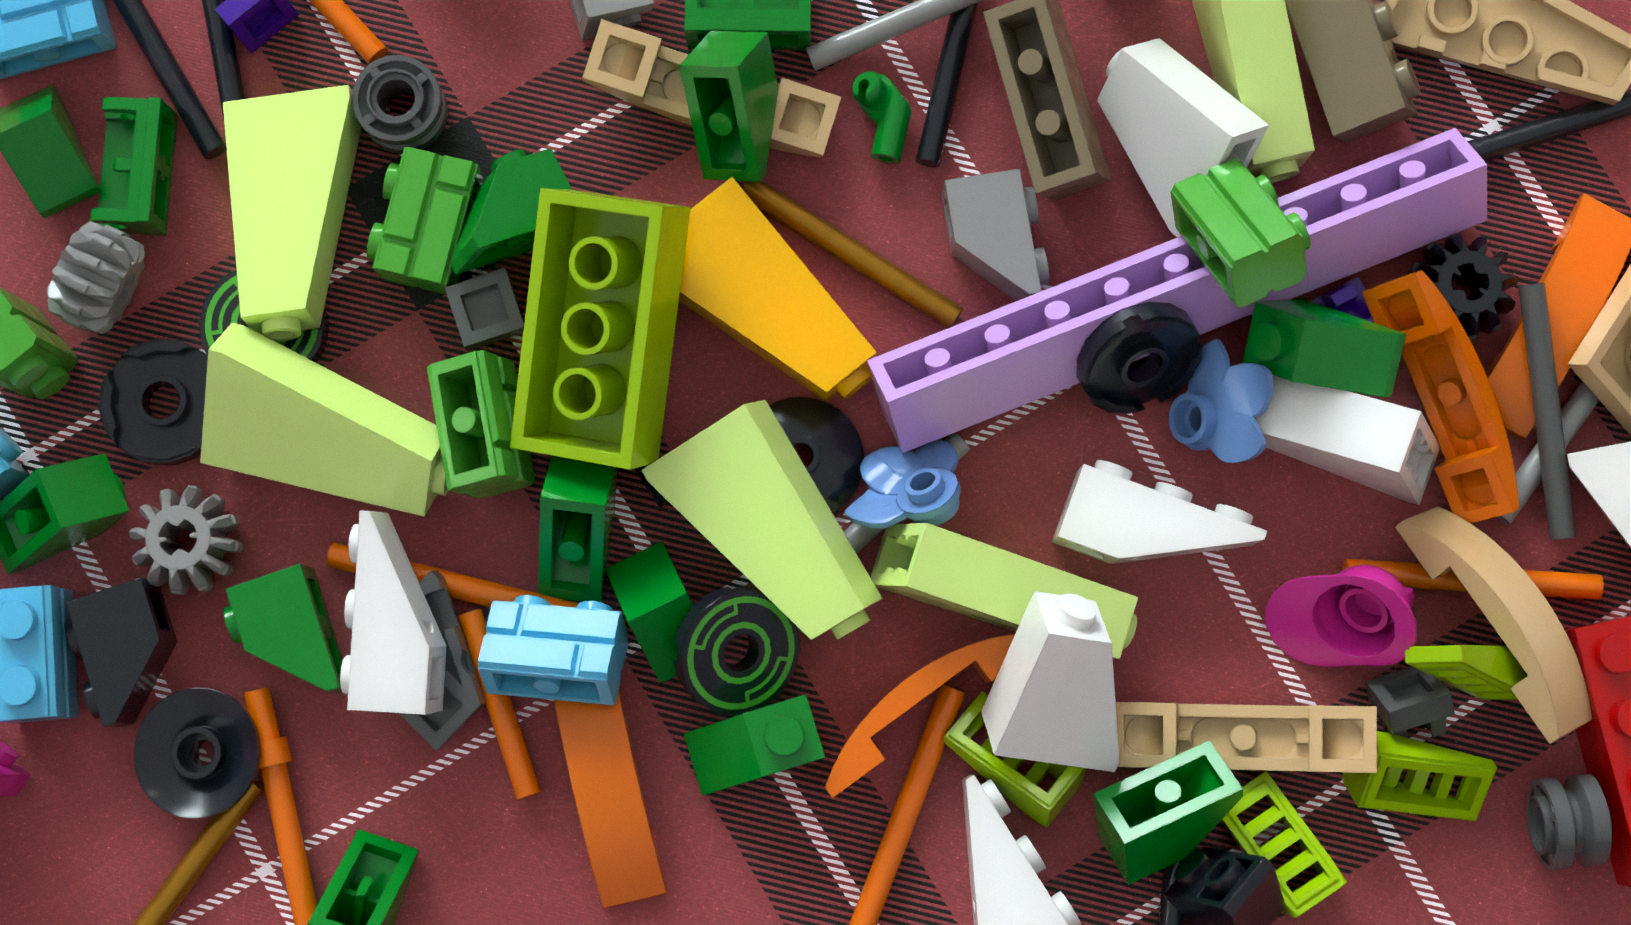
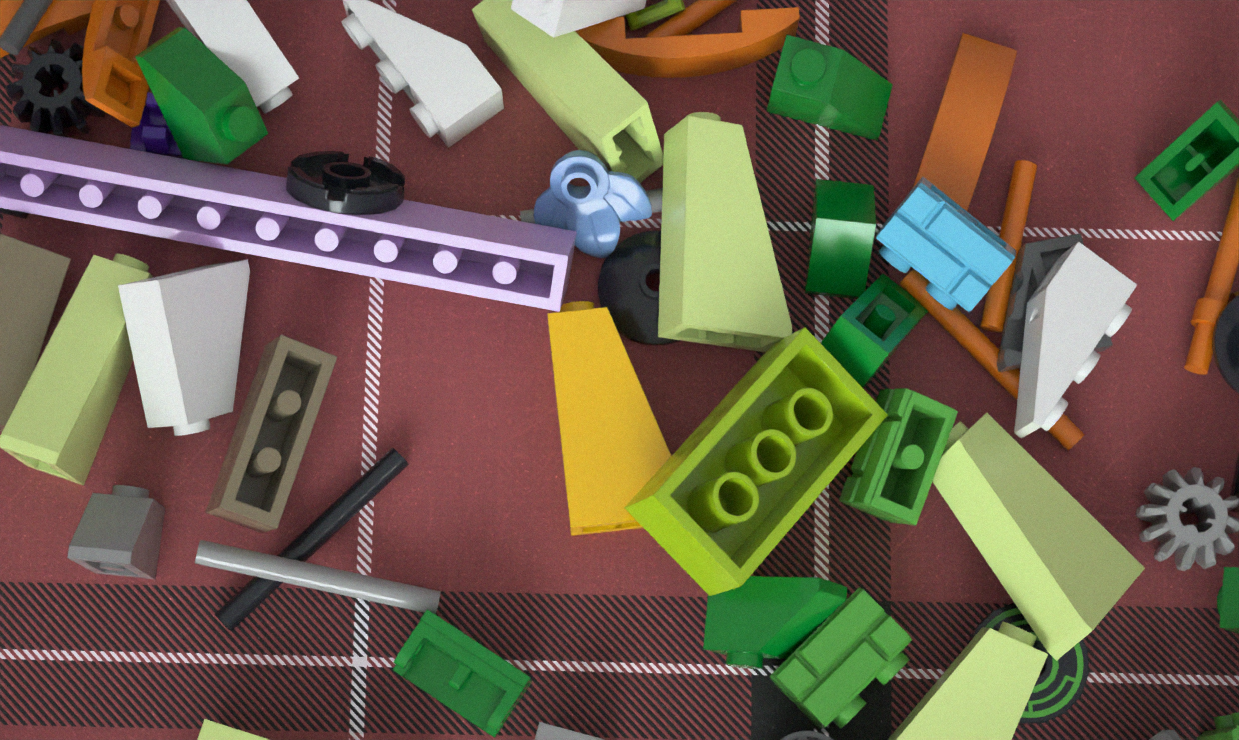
camera: 150 degrees left, 5 degrees down
(127, 396) = (1180, 646): black tile -> none
(287, 625) = (1144, 398): green slope -> none
(485, 309) = (837, 550): dark grey tile -> none
(649, 76) = (538, 620): tan slope -> none
(731, 103) = (530, 588): green slope -> none
(762, 671) = (798, 139): black tile -> none
(853, 253) = (510, 423): pearl gold bar -> none
(887, 110) = (403, 516): green arm -> none
(991, 231) = (387, 363): light grey slope -> none
(1223, 407) = (306, 109): medium blue plate -> none
(1240, 231) = (204, 207): bright green brick -> none

